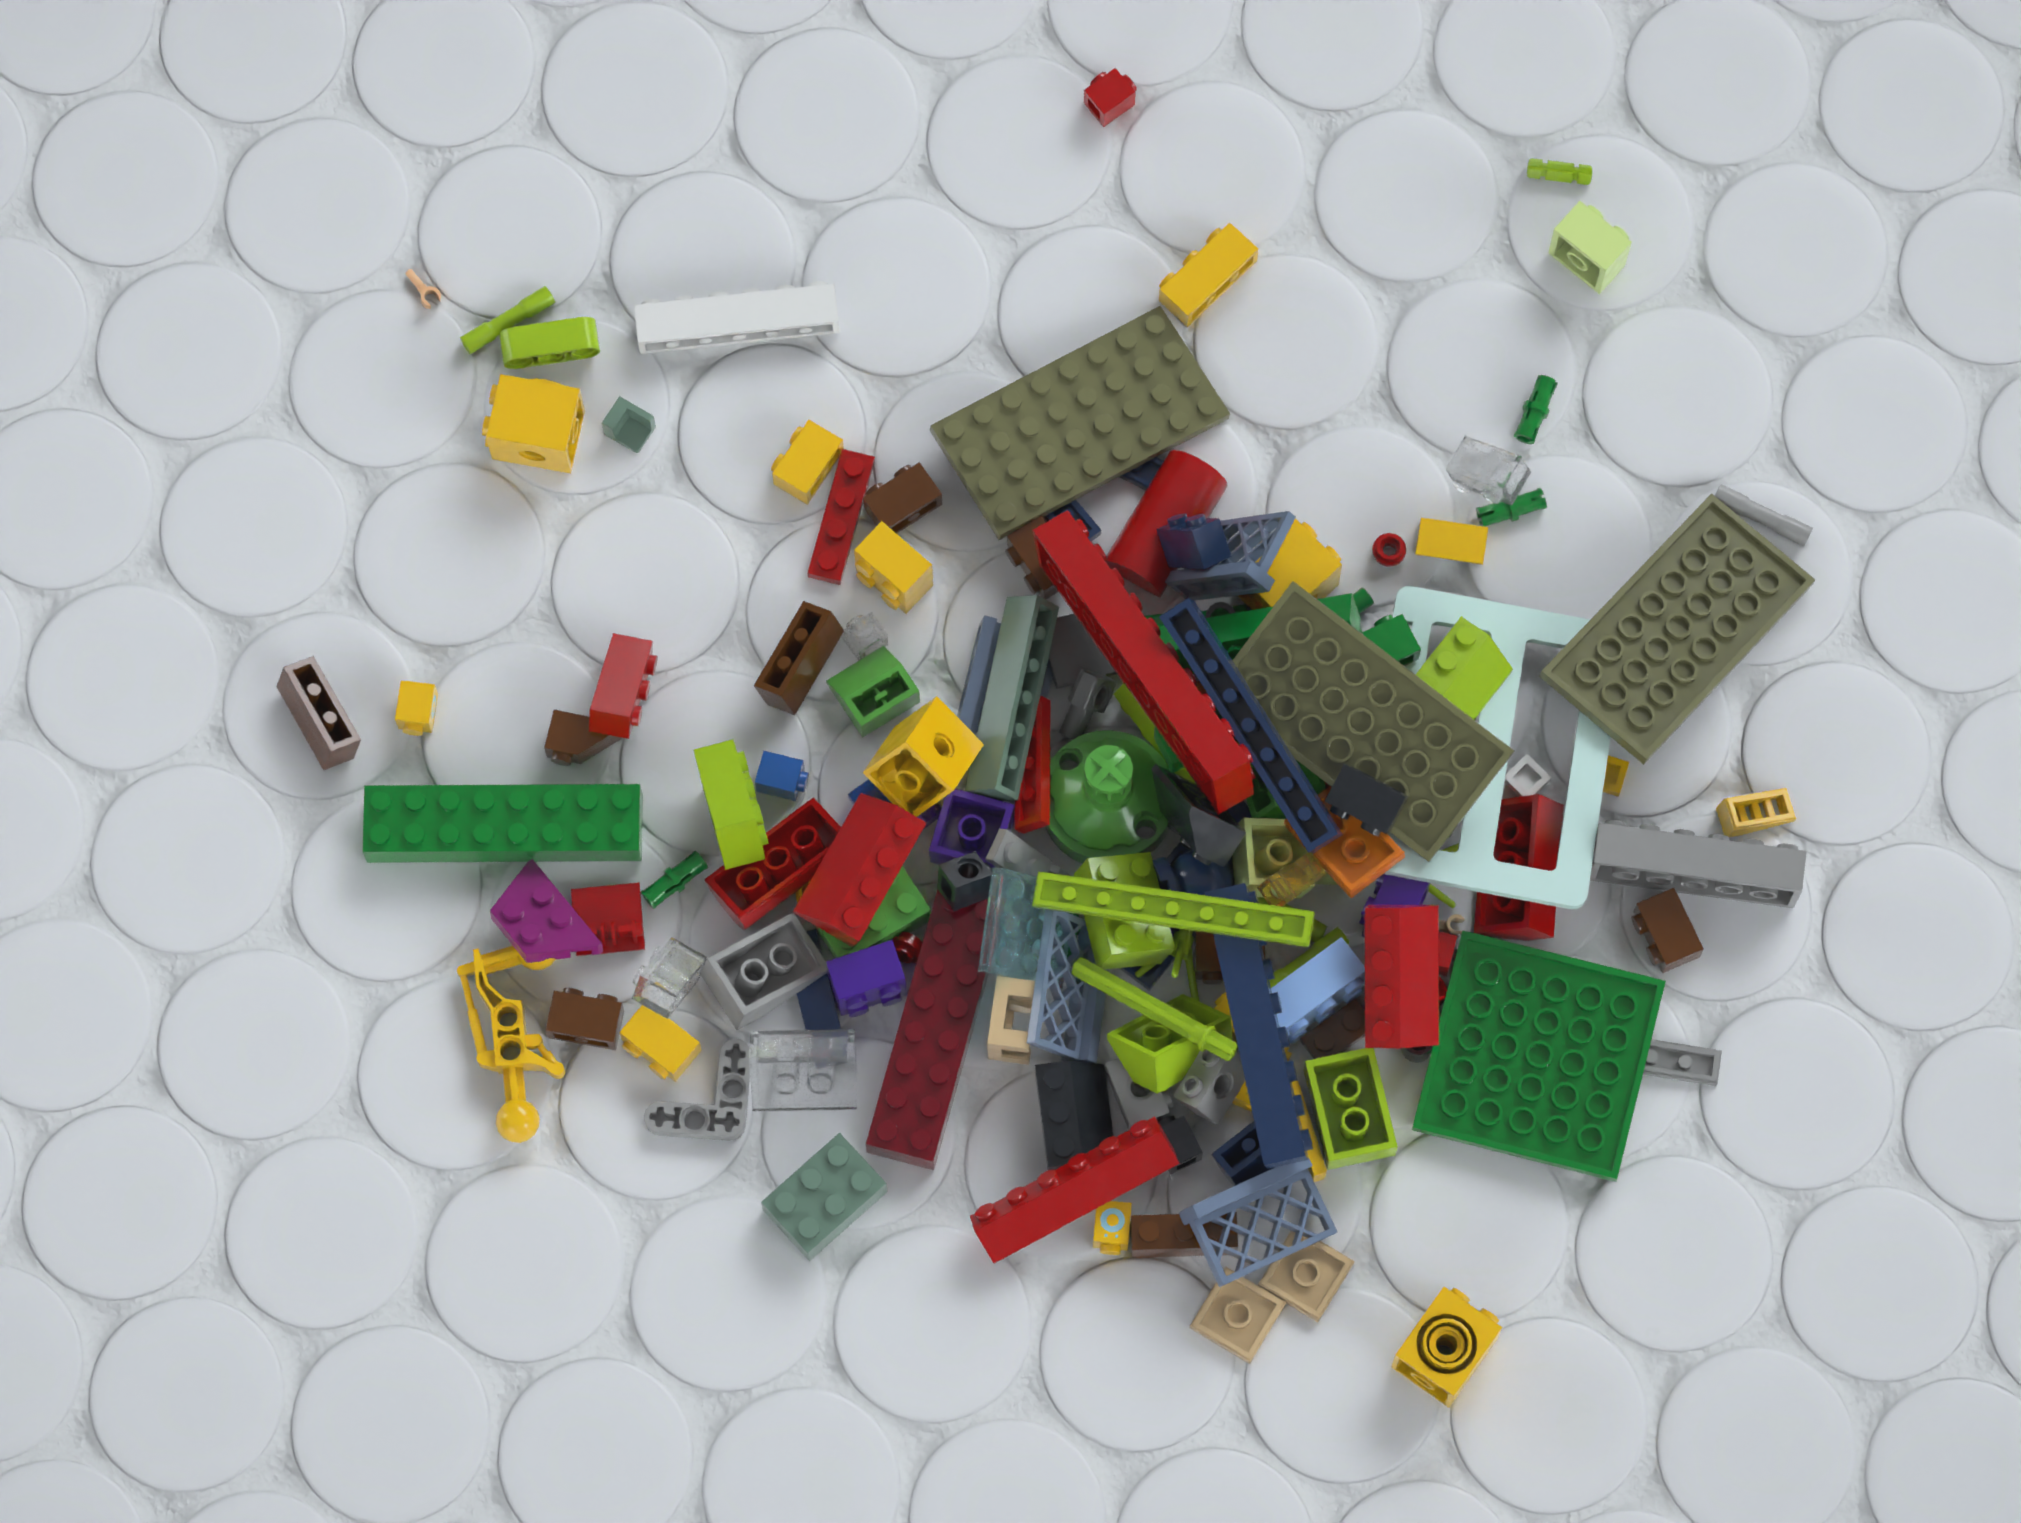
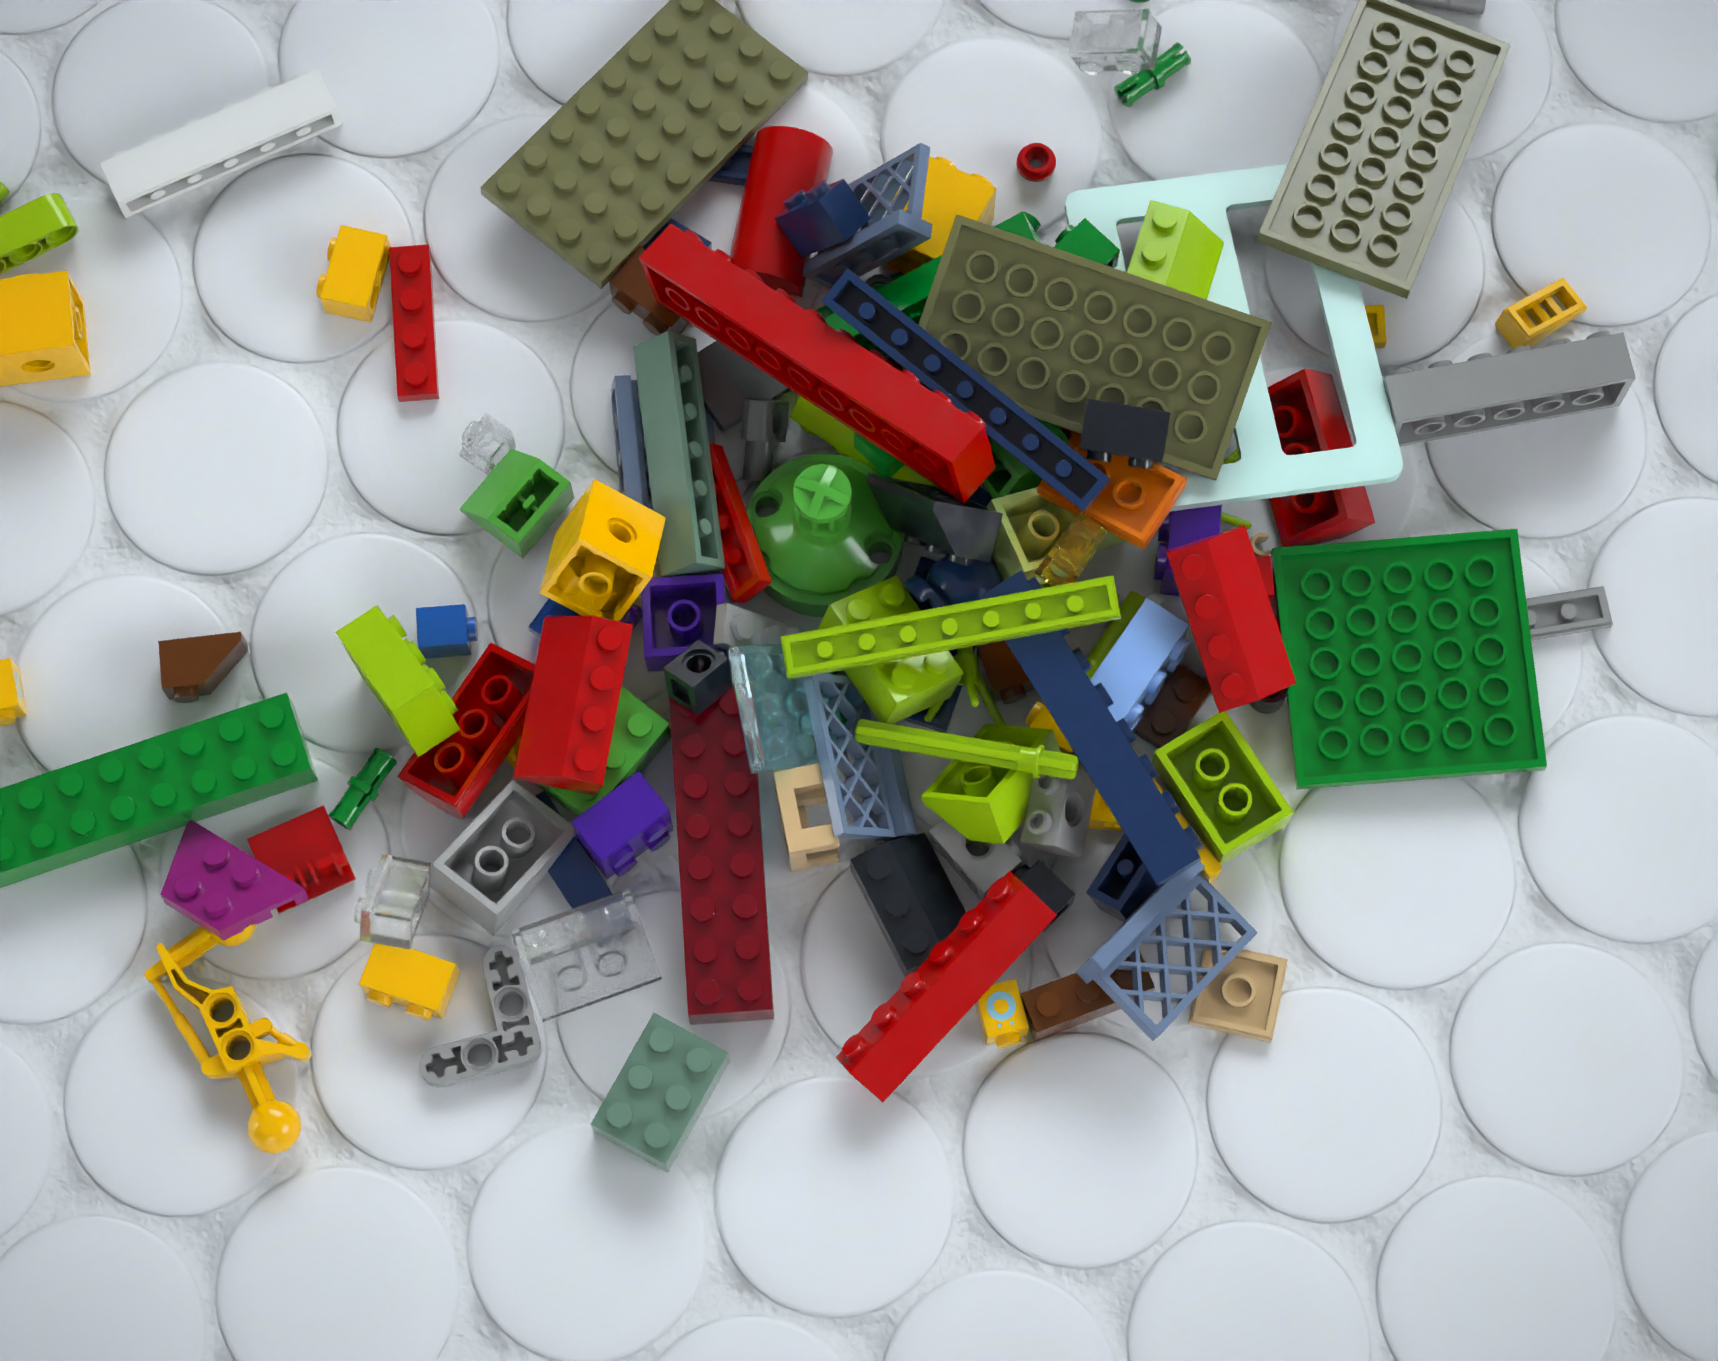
camera: 20 degrees left, 0 degrees up
(585, 1018) = (313, 982): reddish brown brick -> none
(622, 686) = (229, 589): red brick -> none
(628, 425) = (138, 298): sand green panel -> none
(799, 658) = (420, 492): reddish brown brick -> none
(893, 568) = (493, 357): yellow brick -> none
(903, 498) = (476, 281): reddish brown brick -> none
(907, 947) = (658, 775): red plate -> none
(1238, 1316) = (1179, 1067): tan tile -> none
(1451, 540) = (1101, 129): yellow hinge -> none
(1453, 1324) = (1446, 997): yellow brick -> none
(1526, 777) = (1280, 358): white plate -> none
(1667, 930) = (1495, 474): reddish brown brick -> none

